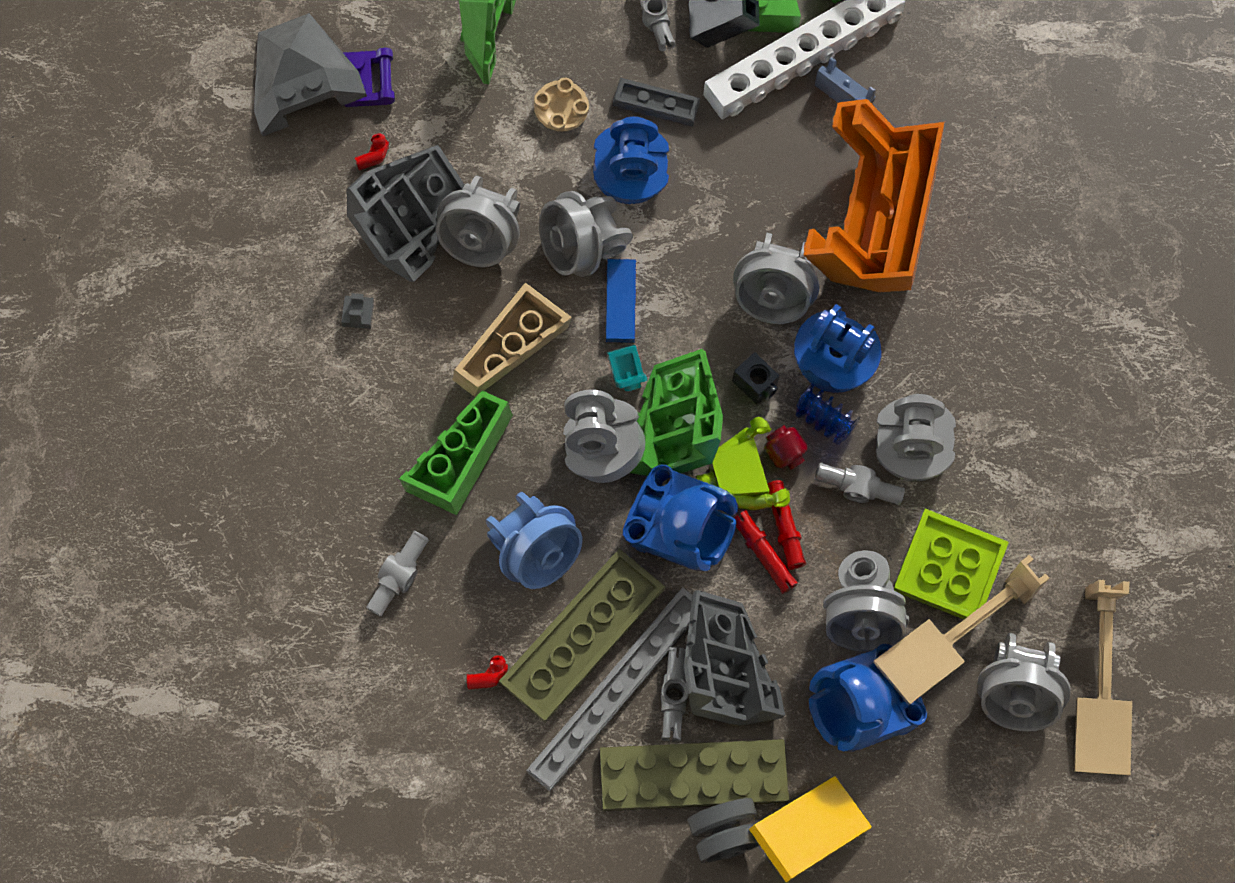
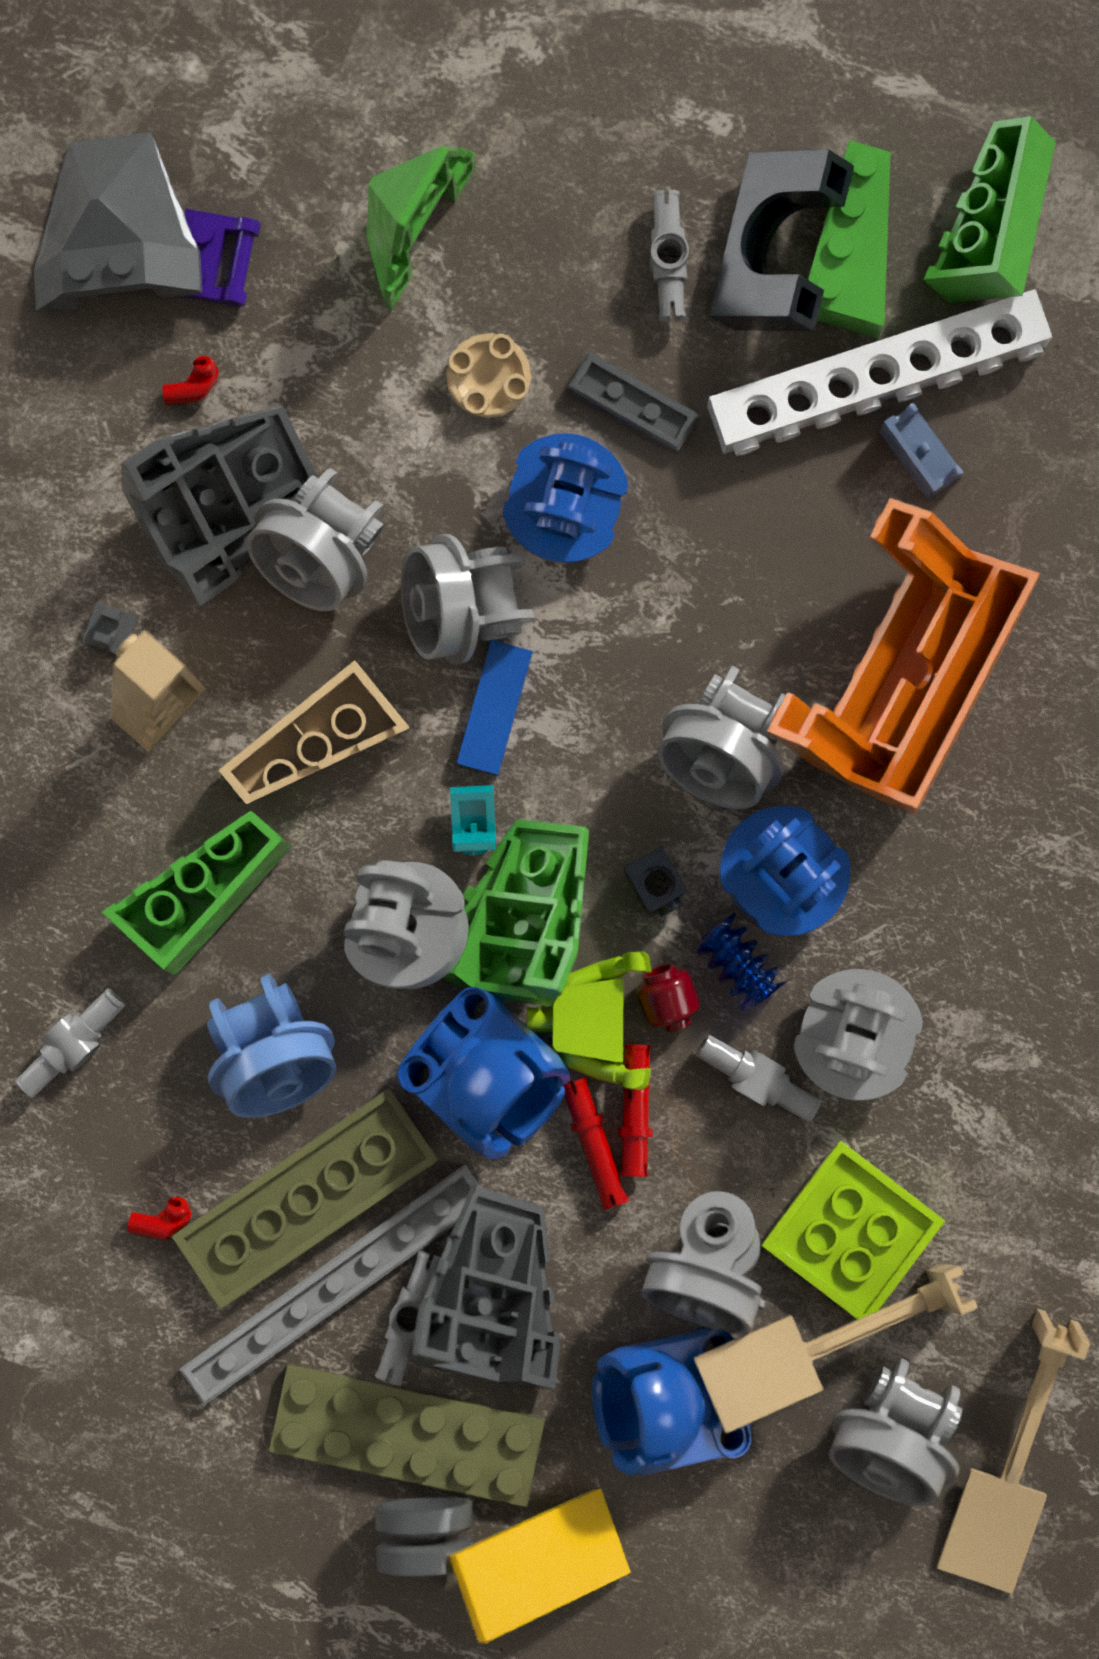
camera: 20 degrees right, 15 degrees up
(398, 327) = (150, 690): none -> tan wedge

